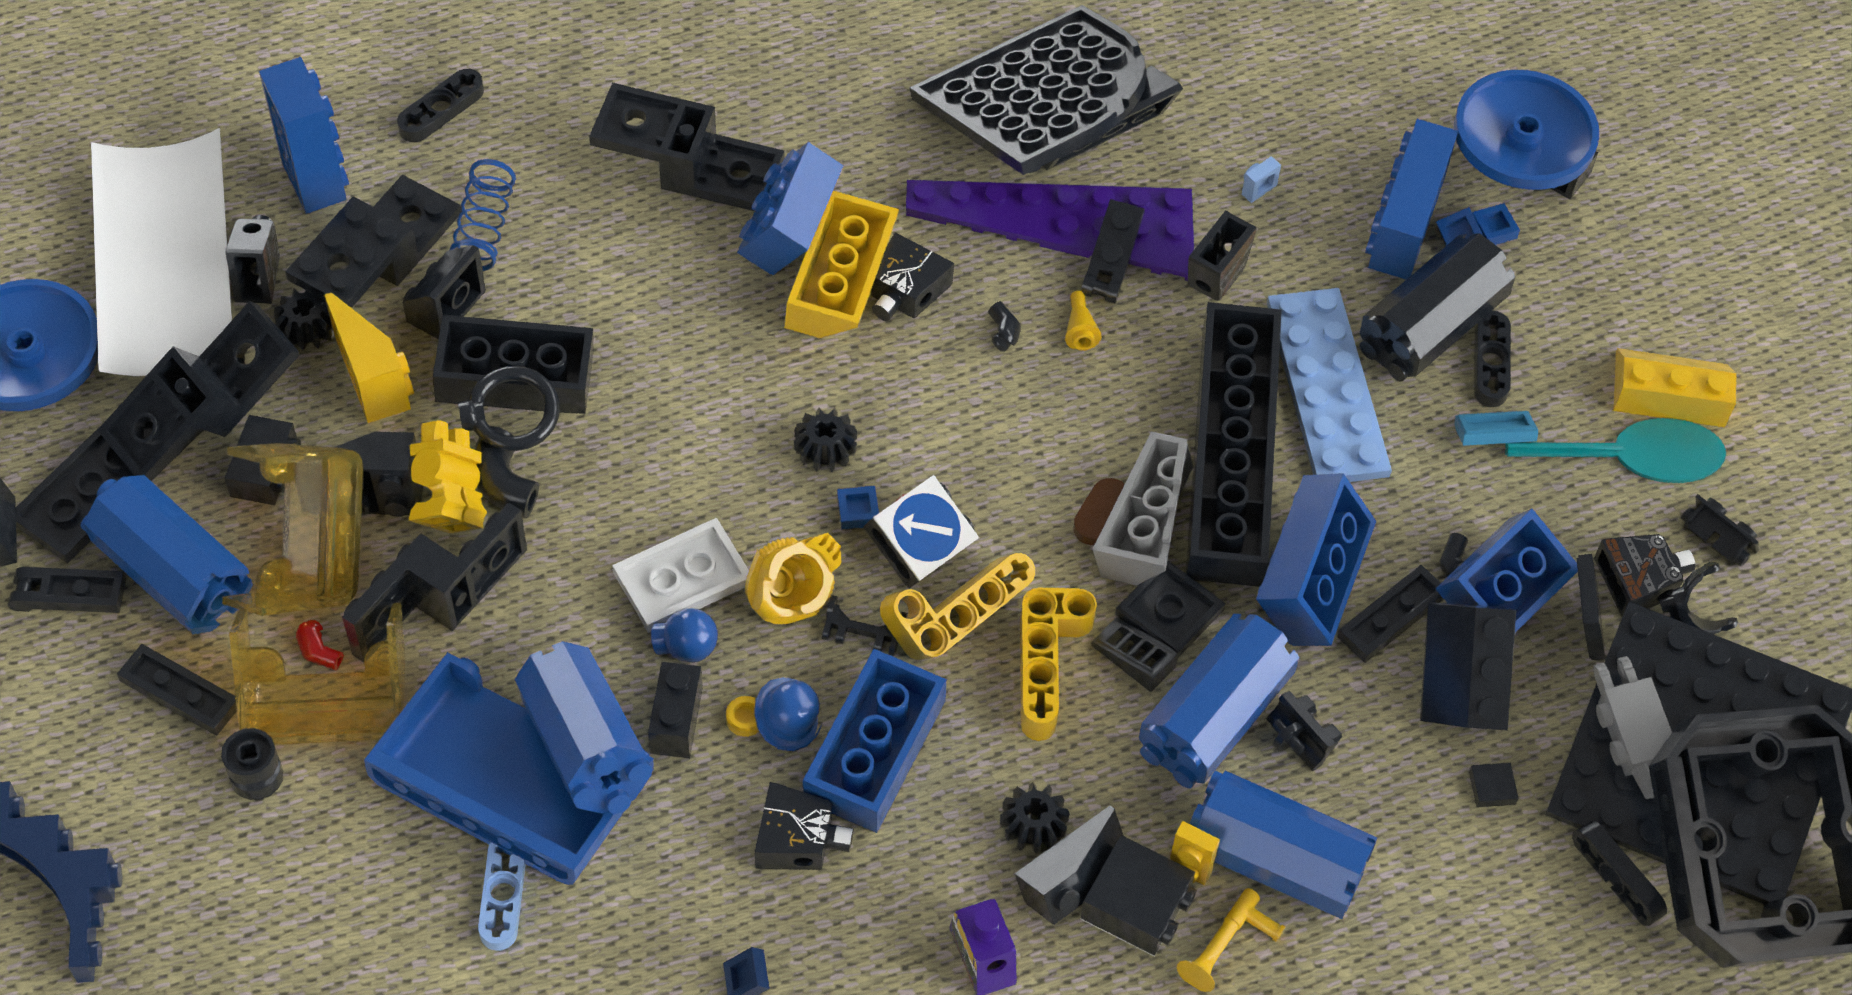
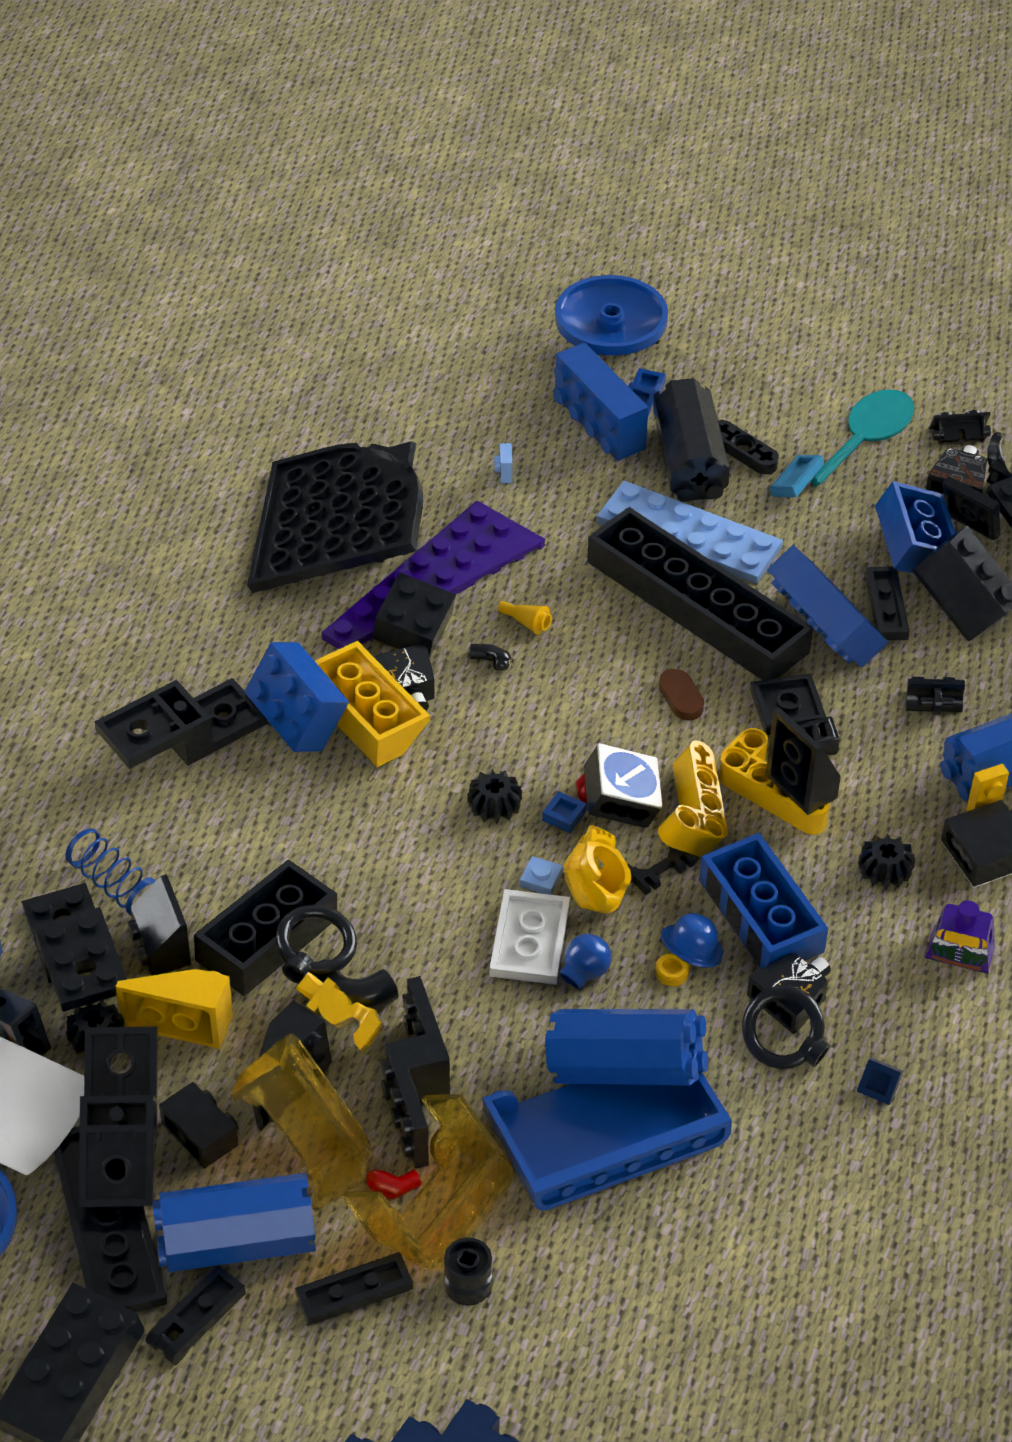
camera: 50 degrees left, 10 degrees down
(487, 918) = (695, 1172): light blue beam -> none
(675, 710) = (635, 989): black brick -> none
(735, 892) = (813, 1047): none -> black piece
(764, 532) = (541, 876): none -> light blue plate
(982, 233) = (413, 614): none -> black brick
(1055, 659) = (800, 765): none -> black slope
(1065, 873) = (944, 870): black slope -> none
(1113, 250) = (490, 563): black plate -> none
(1141, 523) = (723, 671): light grey wedge -> none
(1211, 266) = (562, 522): black torso -> none
(1217, 699) = (885, 715): blue brick -> none
(1453, 553) = (871, 555): black arm -> none
(1674, 387) = (843, 382): yellow slope -> none

